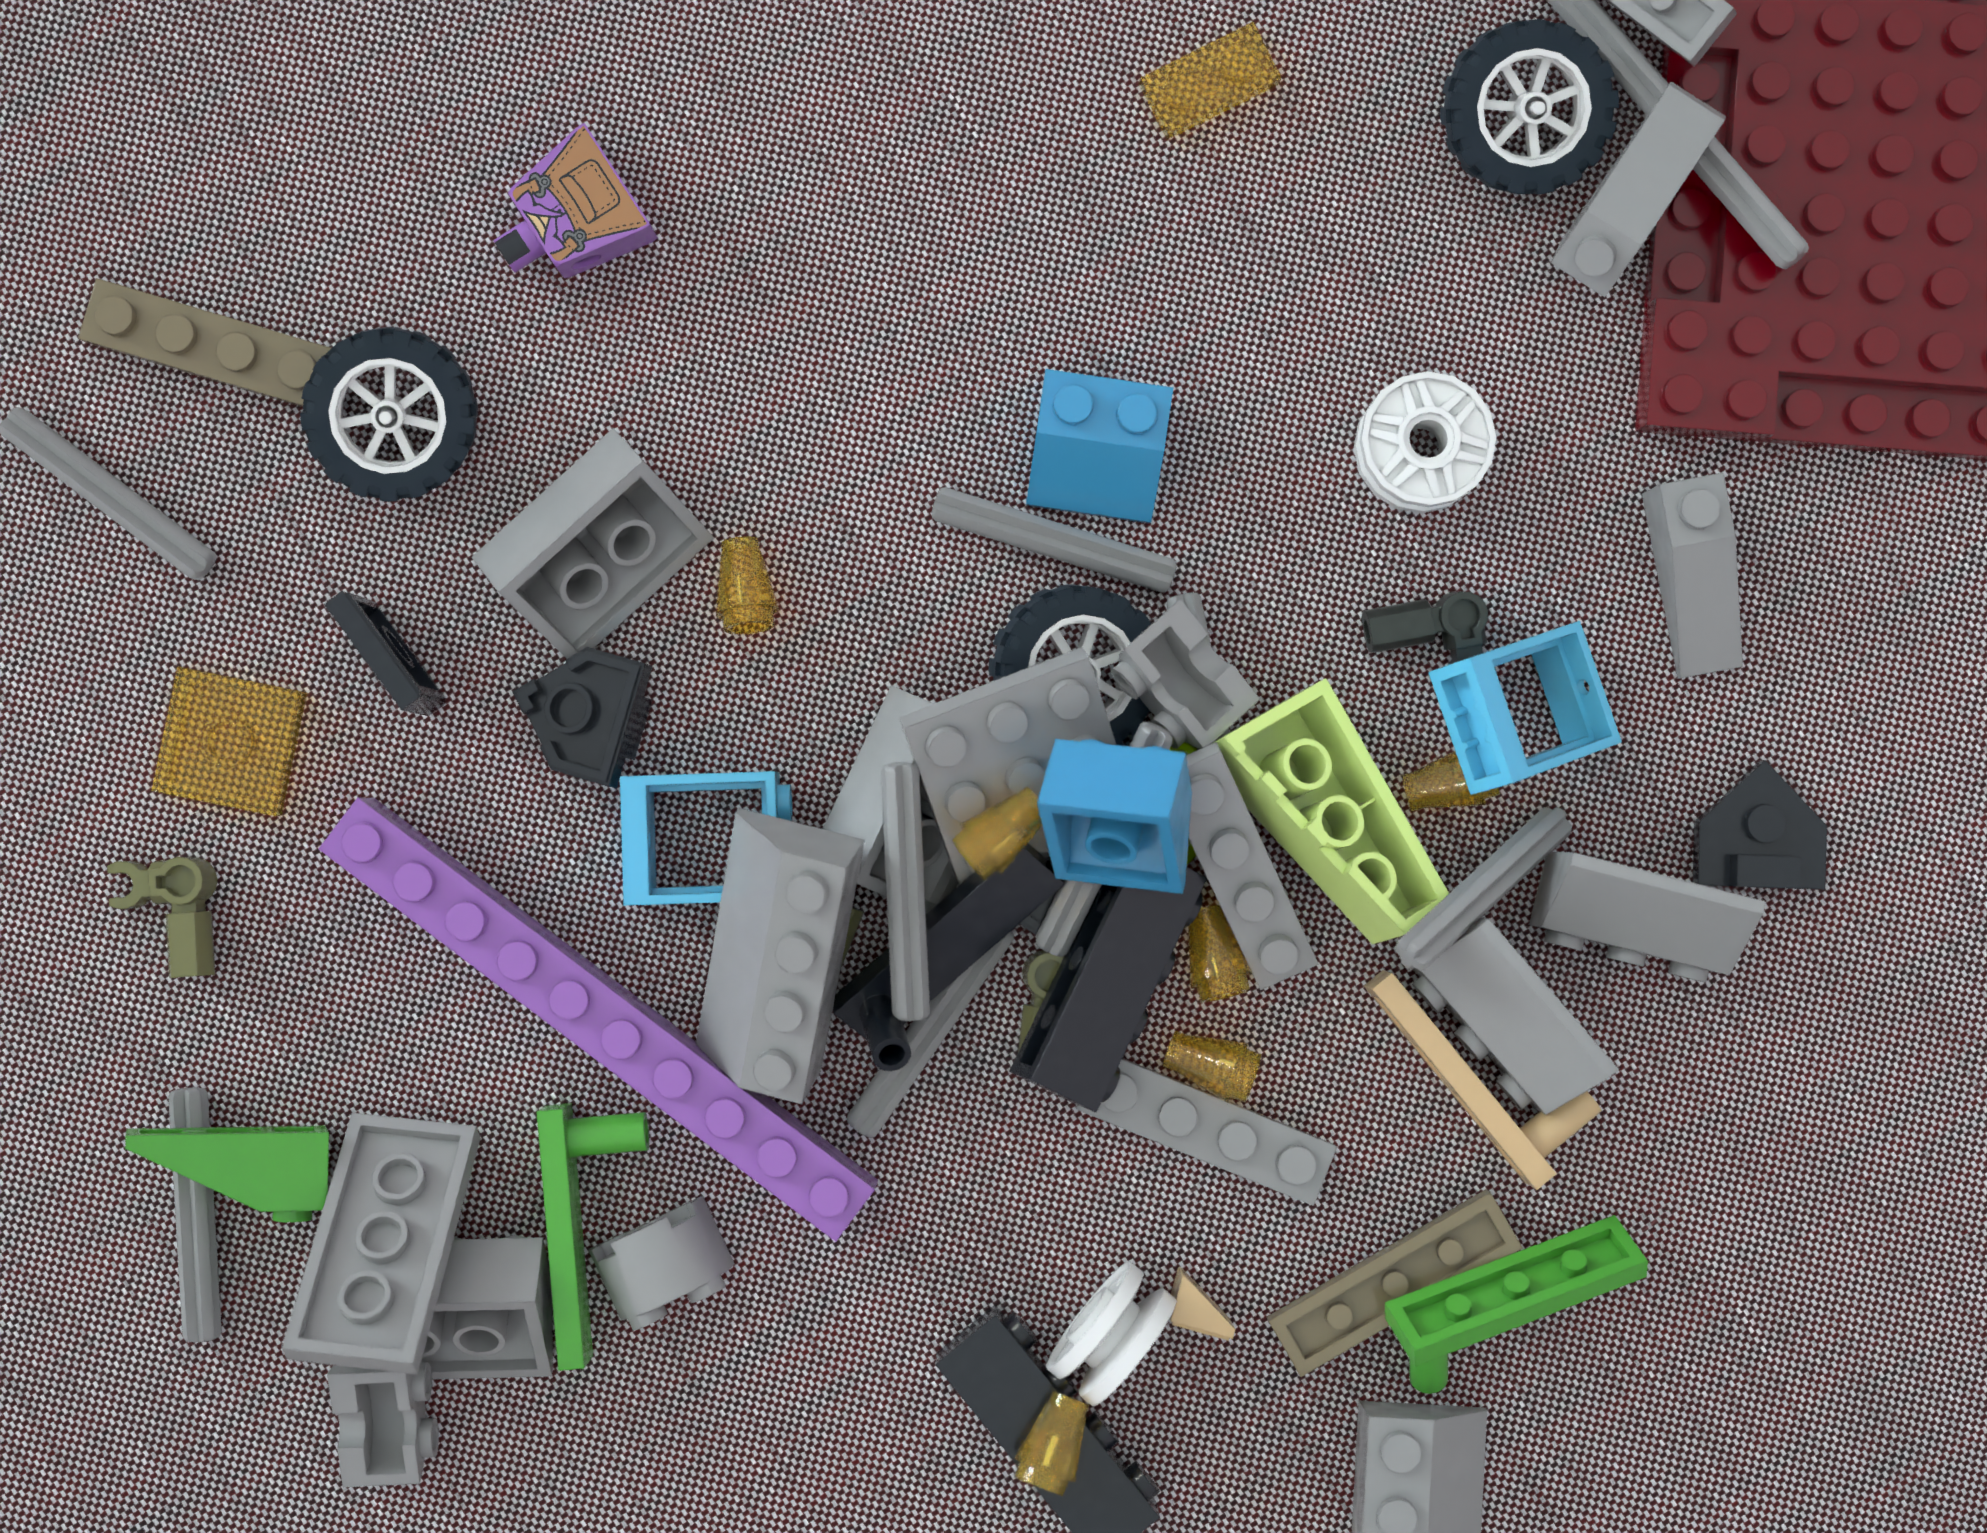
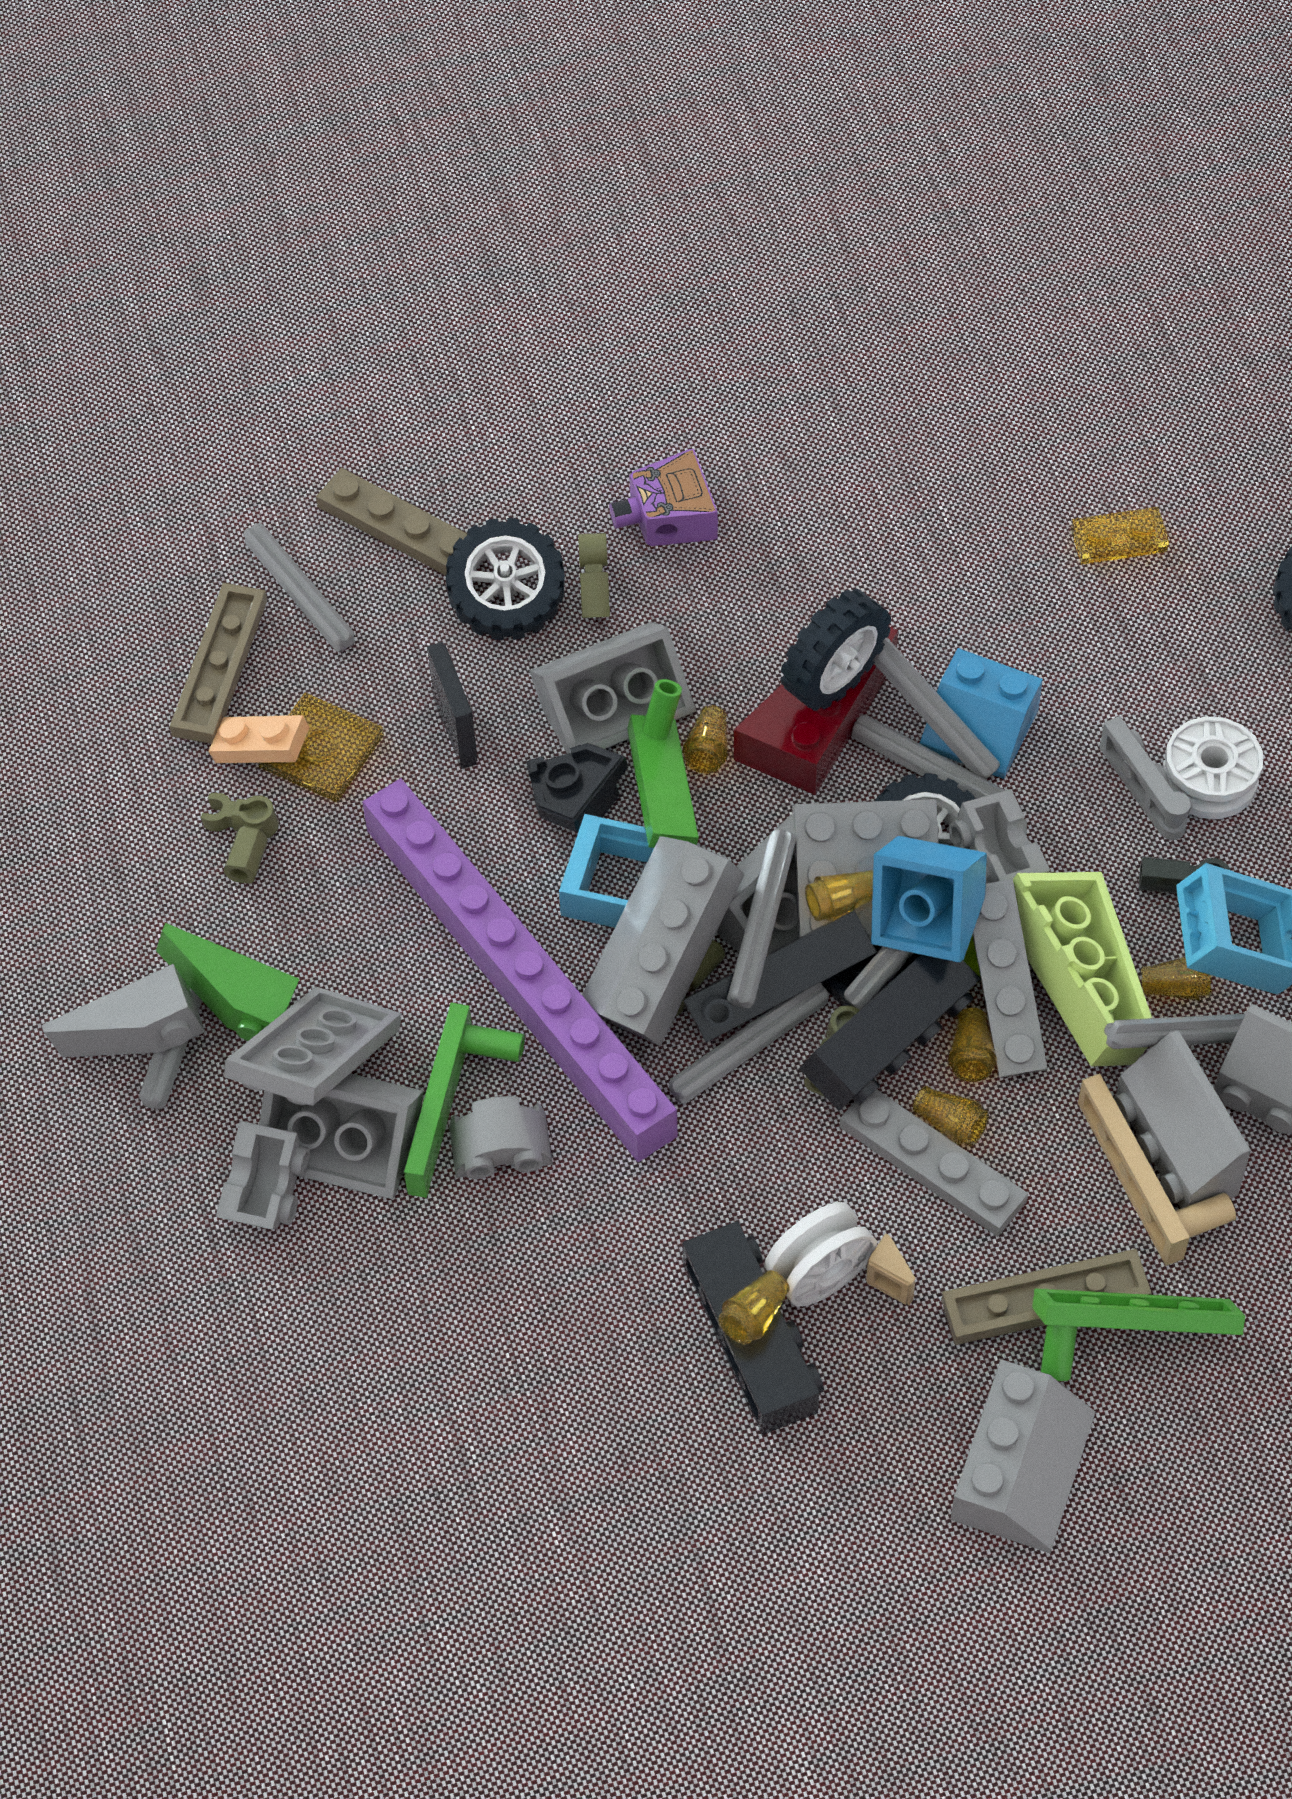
camera: 20 degrees right, 30 degrees down
(43, 653) = (218, 663): none -> dark tan plate
(143, 767) = (259, 739): none -> light nougat plate
(154, 1241) = (132, 1020): none -> light grey slope
(511, 376) = (594, 581): none -> olive bar
(706, 688) = (661, 768): none -> bright green piece
(878, 507) = (801, 743): none -> dark red wedge
(893, 474) = (835, 649): none -> black wheel
(1031, 470) = (935, 711): none -> light grey axle
(1341, 487) = (1144, 779): none -> light grey plate

